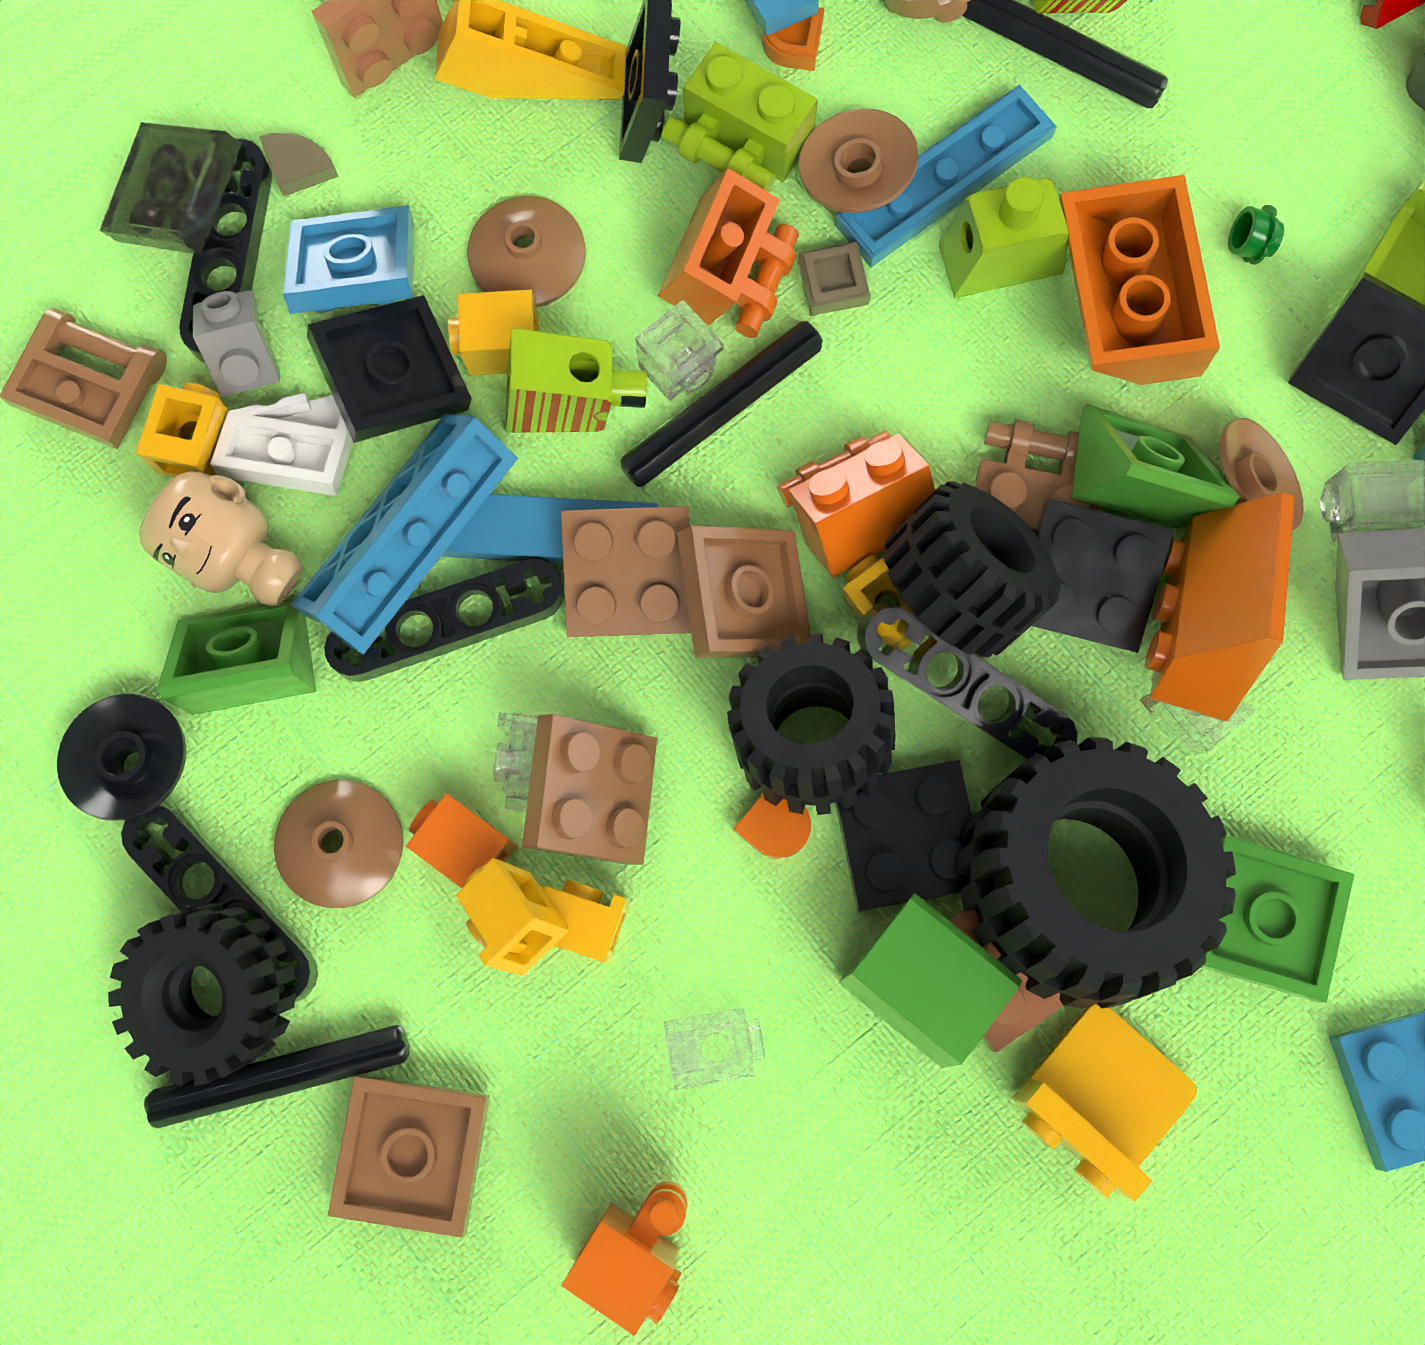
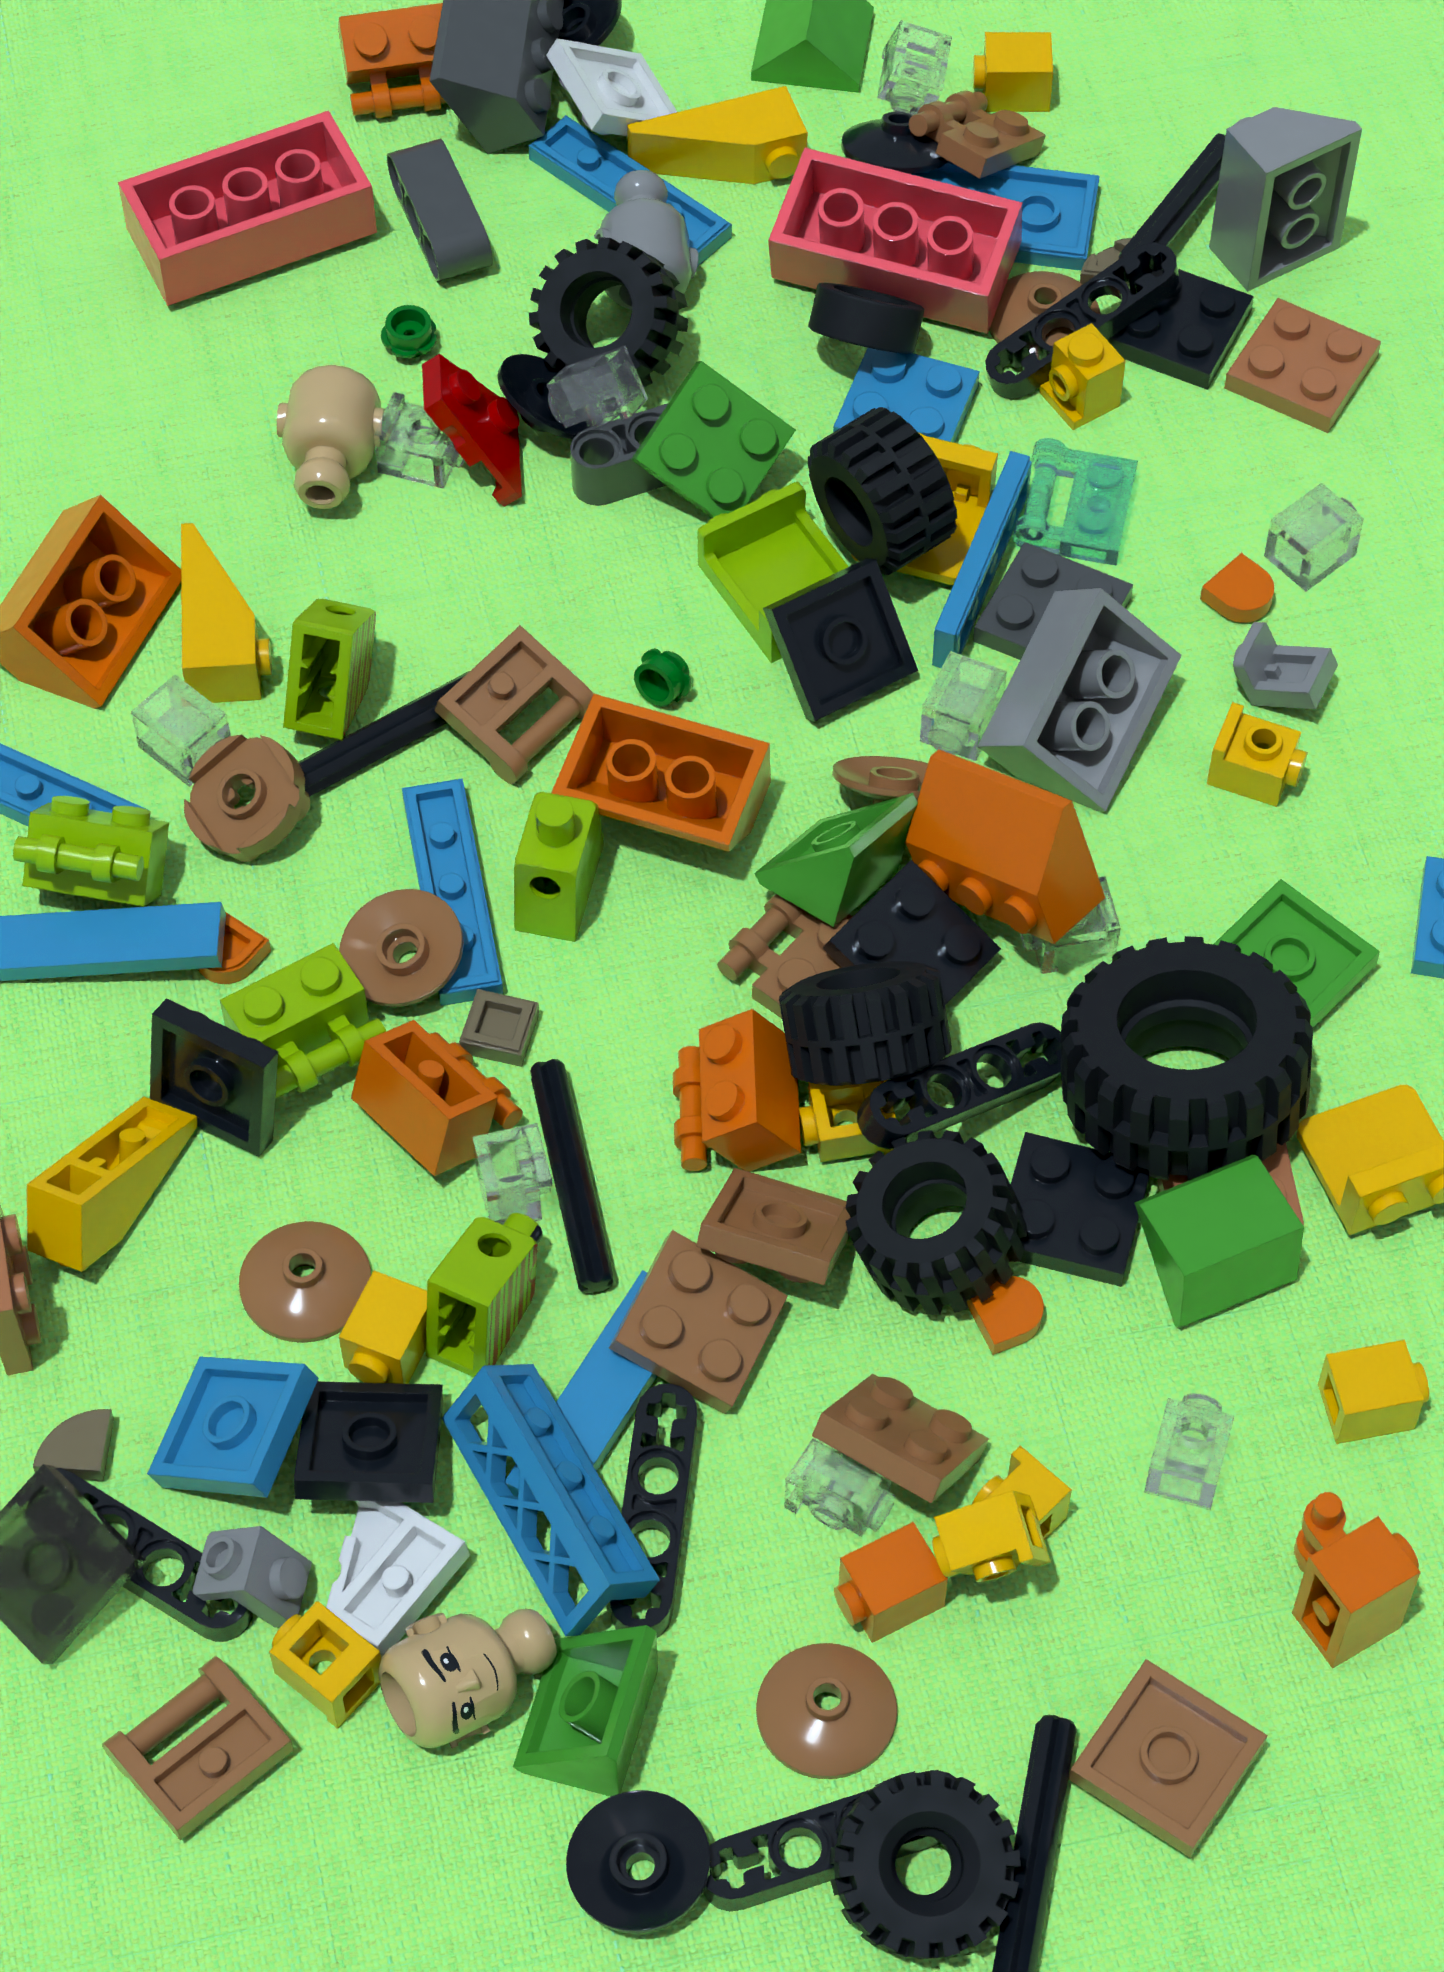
camera: 65 degrees left, 20 degrees down
(852, 1192) = (1372, 1391): none -> yellow brick
(1157, 108) = (501, 690): none -> medium nougat plate

